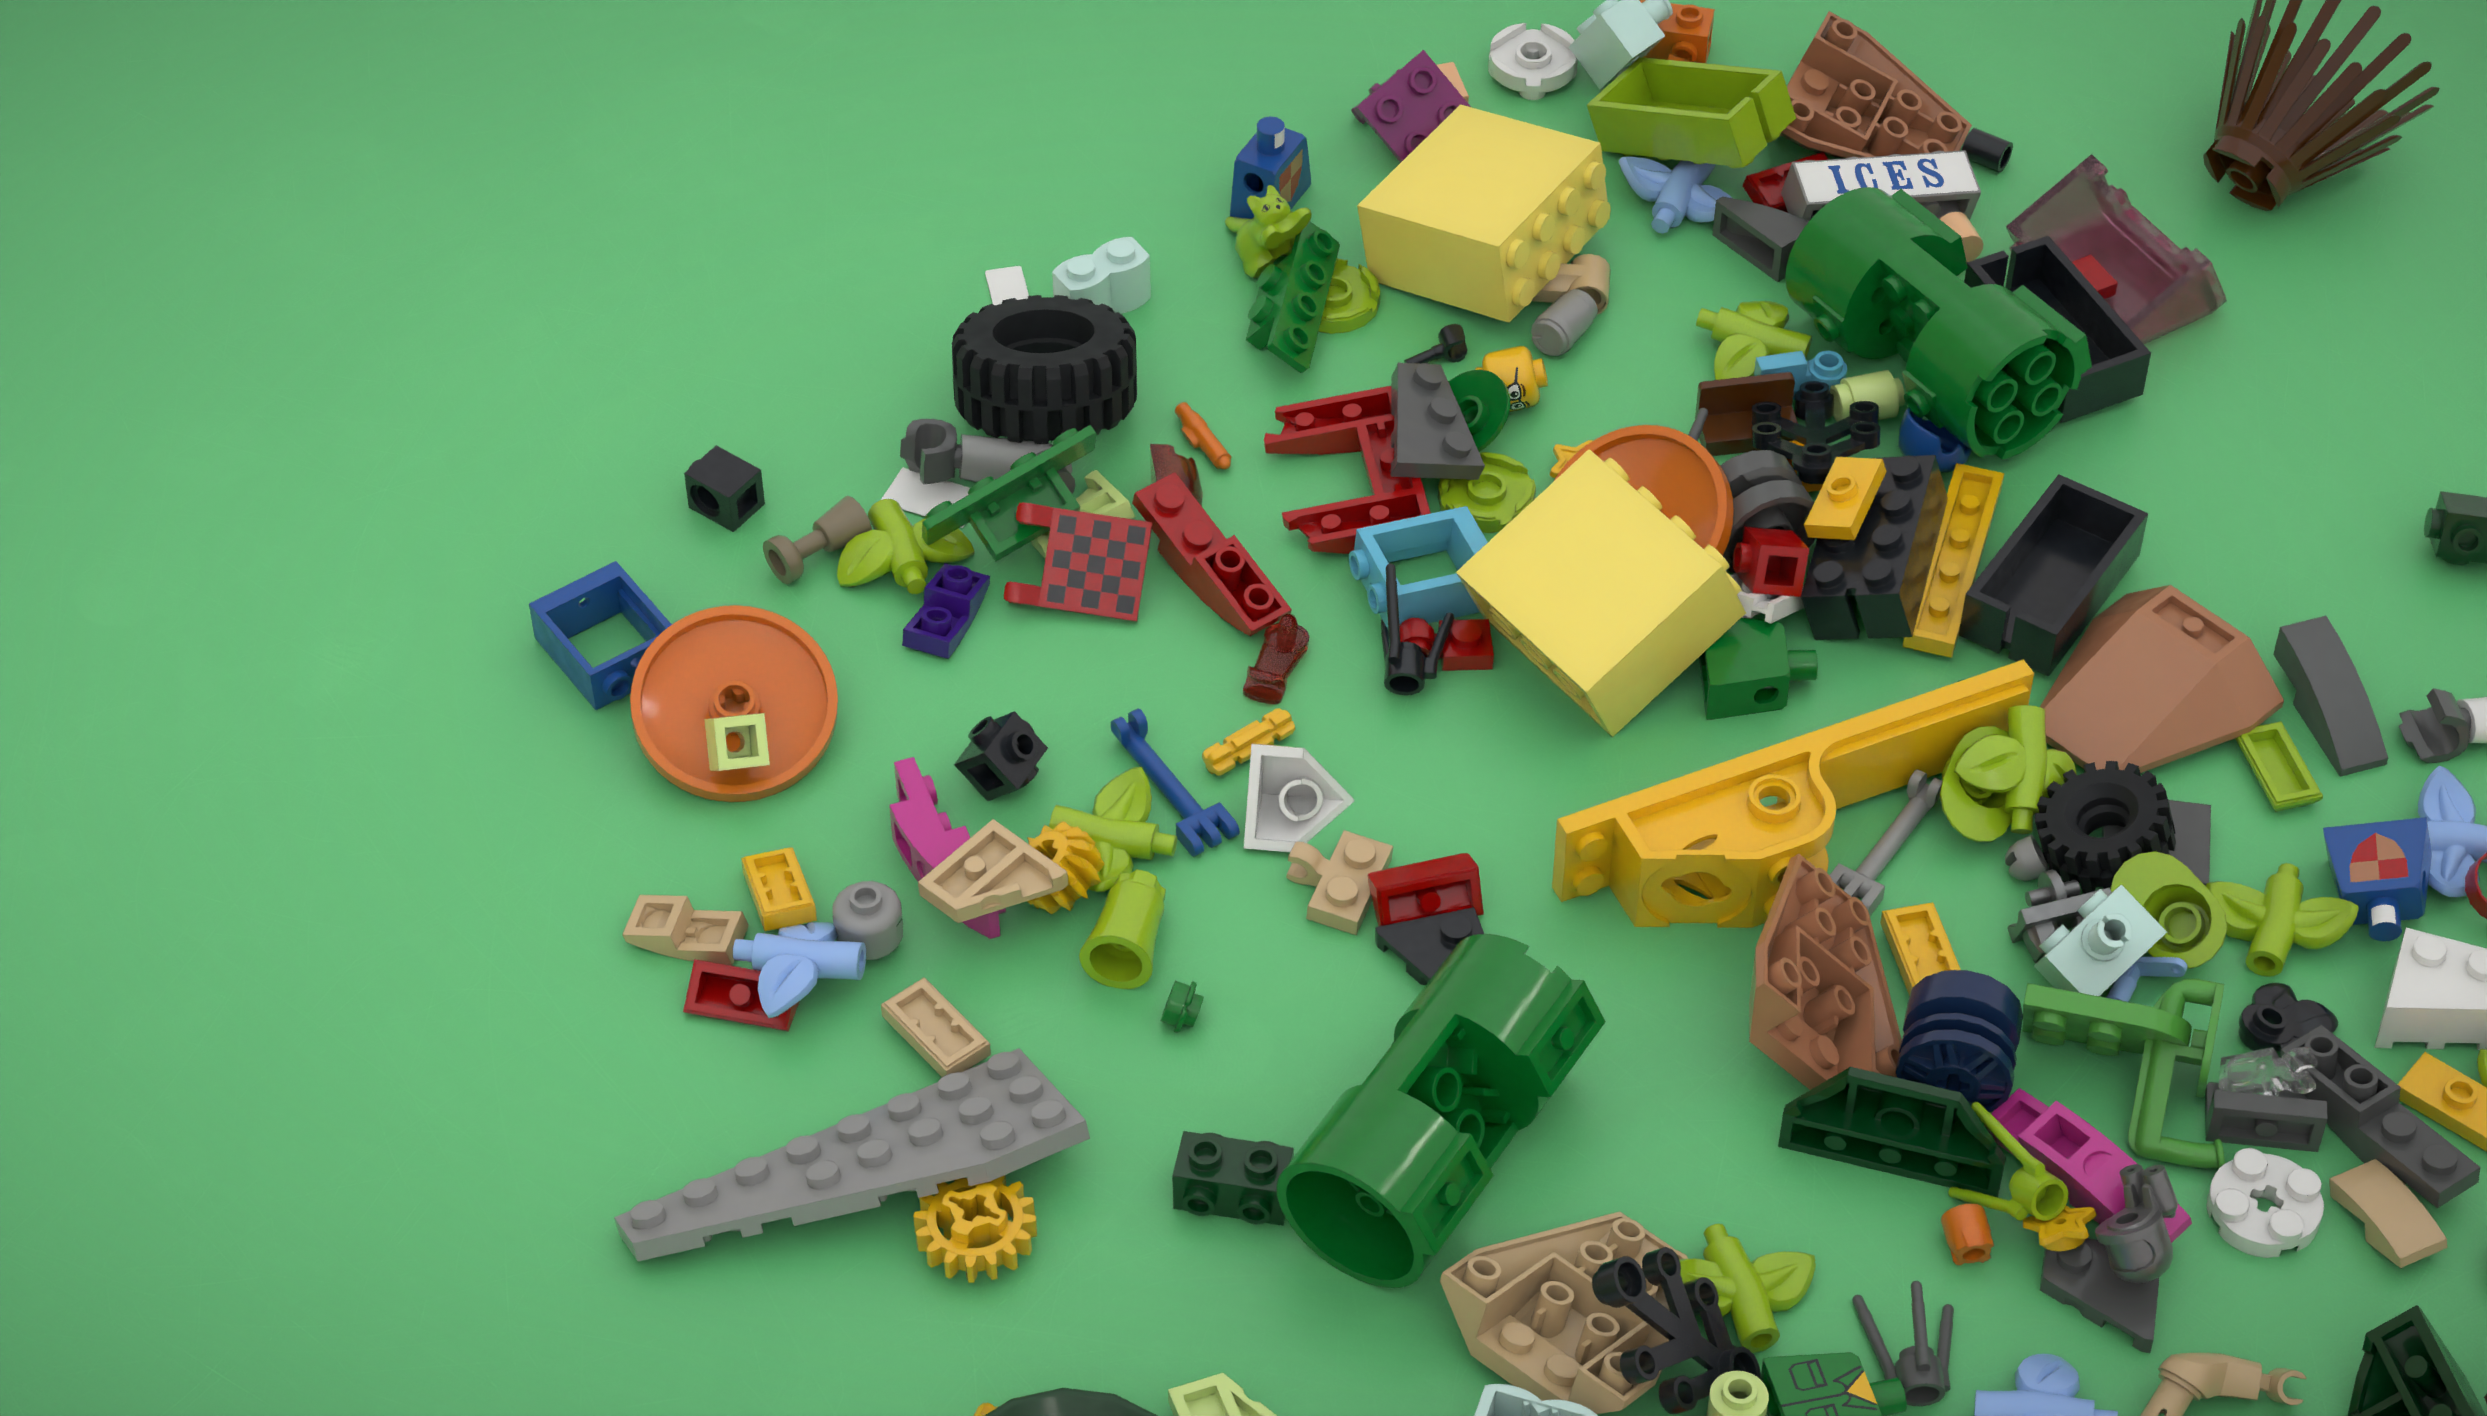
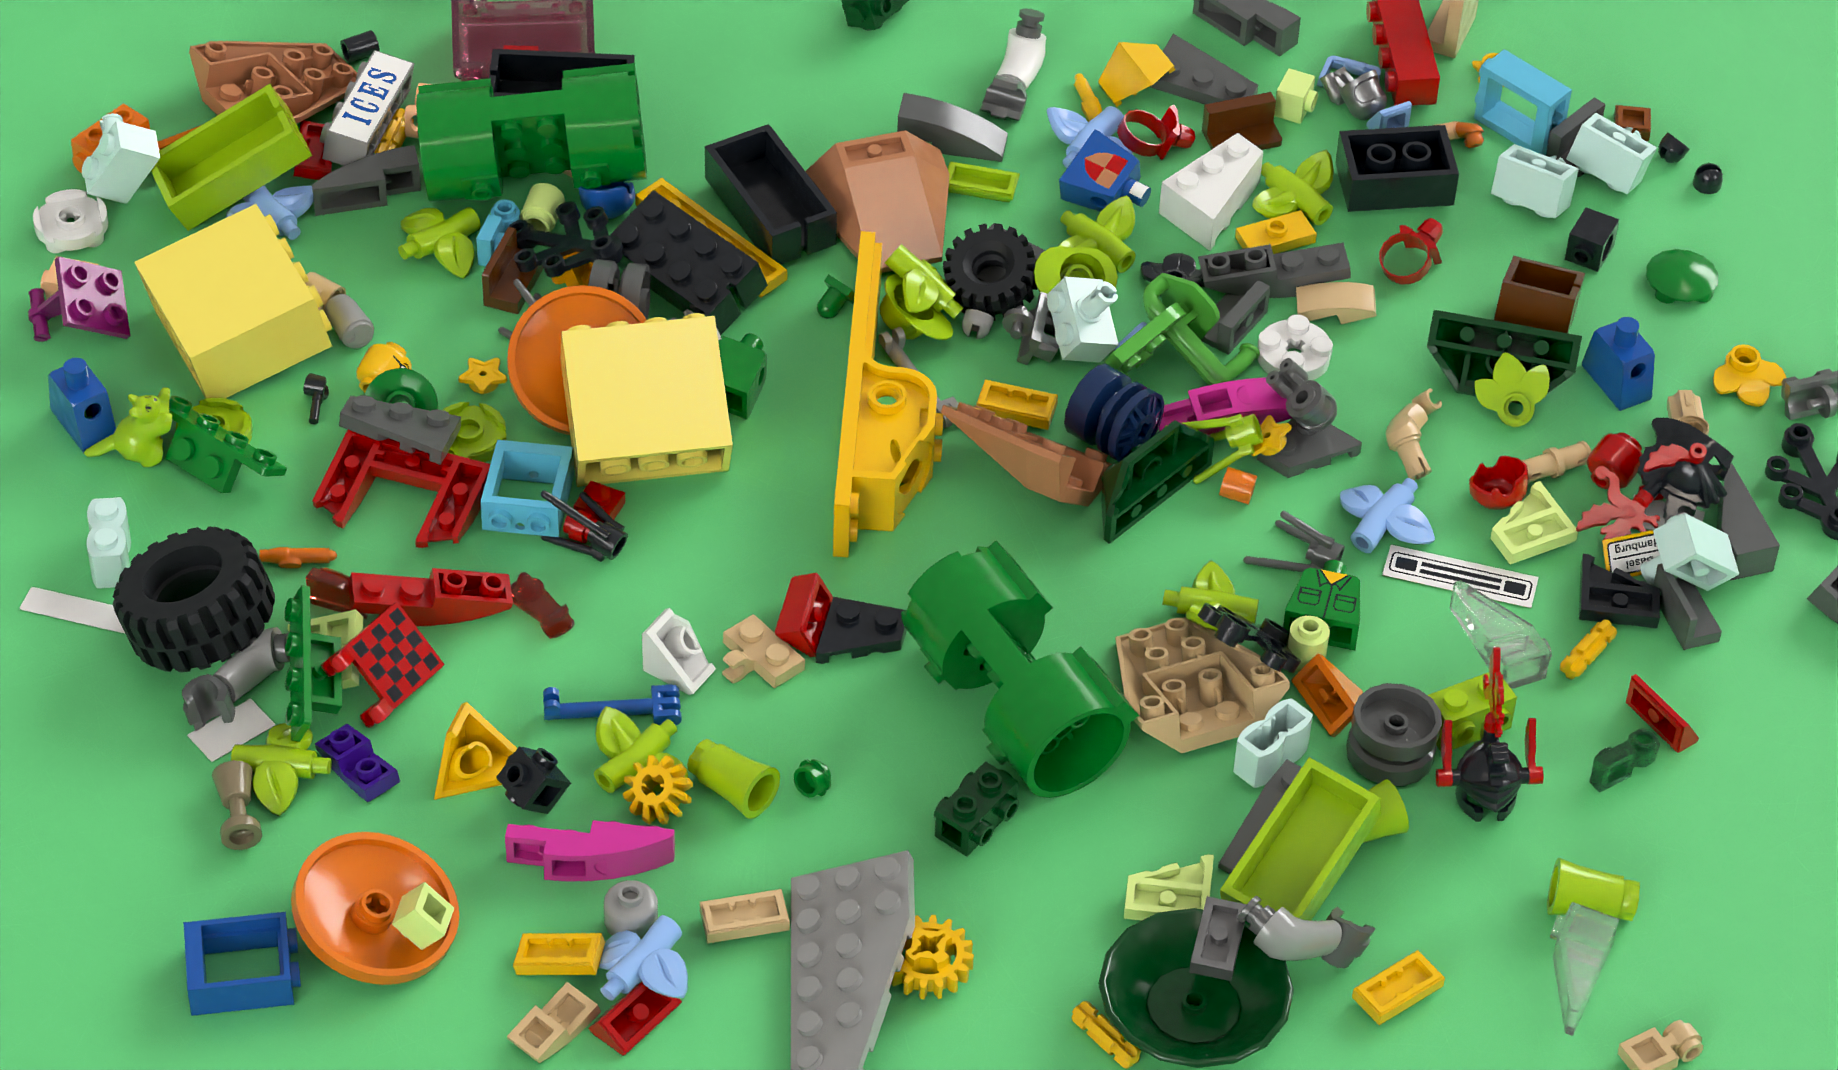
camera: 65 degrees left, 0 degrees up
(724, 488) = (139, 839): brick -> none
(990, 875) = (659, 817): tan wing -> none
(1008, 680) = (471, 754): none -> yellow slope
(1237, 746) = (605, 650): yellow axle -> none
(1771, 561) = (673, 302): red brick -> none
(1845, 498) = (657, 248): yellow plate -> none
(2267, 1073) = (1224, 291): clear plate -> none

